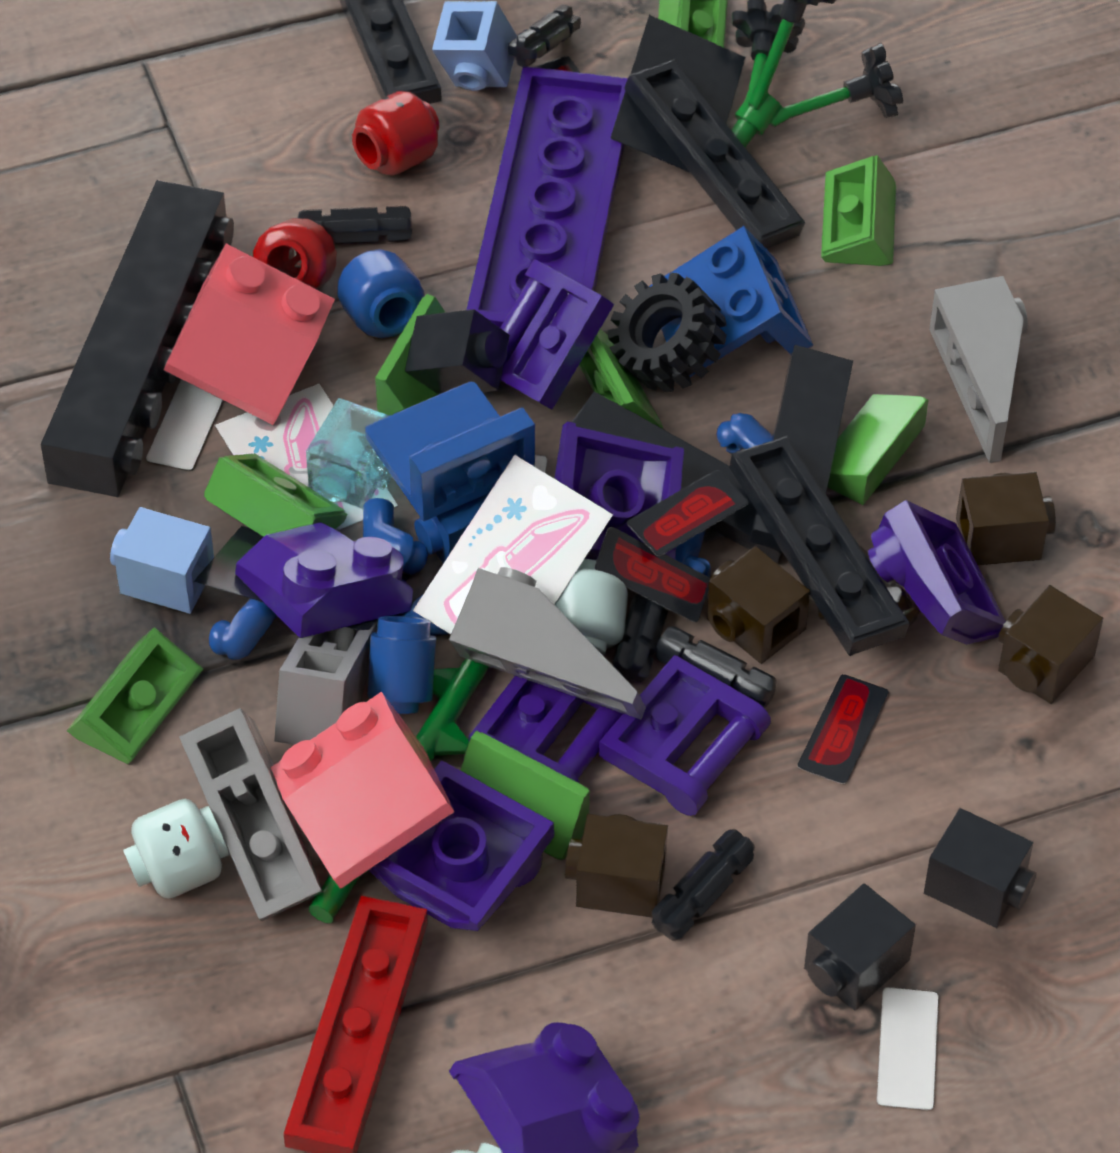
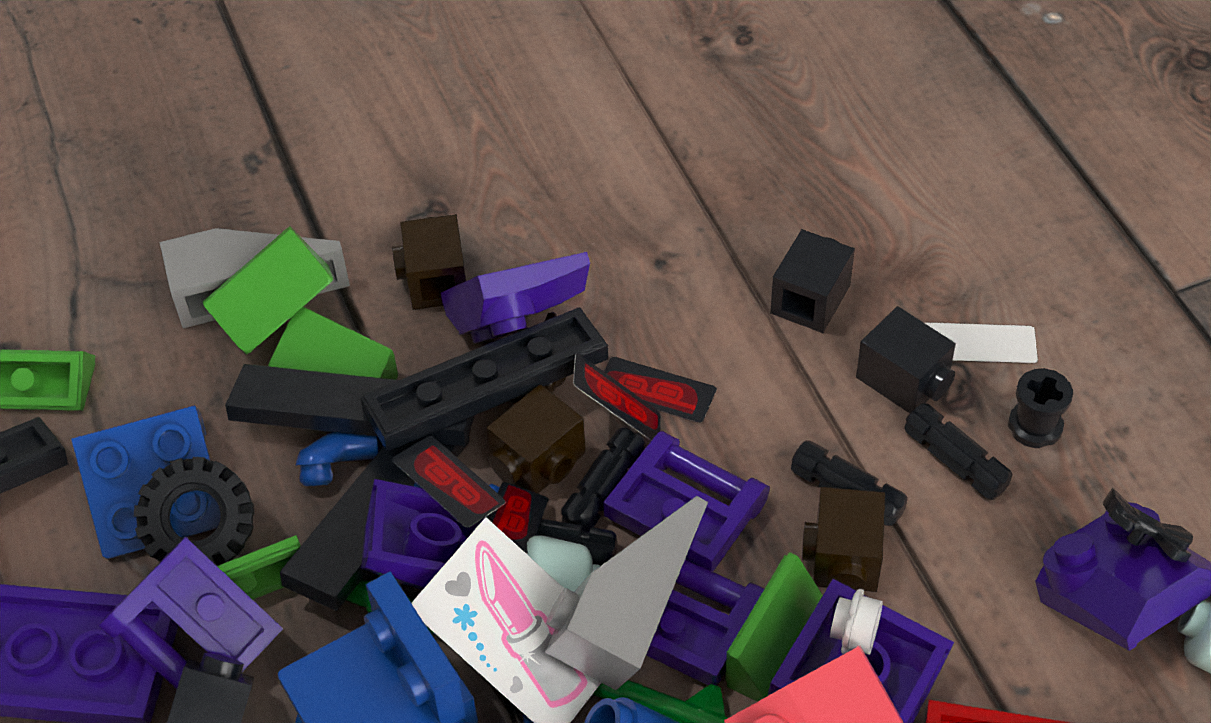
camera: 90 degrees left, 0 degrees up
(488, 823) = (856, 622): none -> white plate
(570, 1110) = (1171, 538): none -> black piece
(741, 992) = (958, 451): none -> black axle
(781, 1067) = (1041, 401): none -> black bush
(800, 665) = (616, 397): none -> sticker
(943, 370) = (268, 290): none -> bright green slope
(1048, 643) = (574, 224): dark brown brick -> none

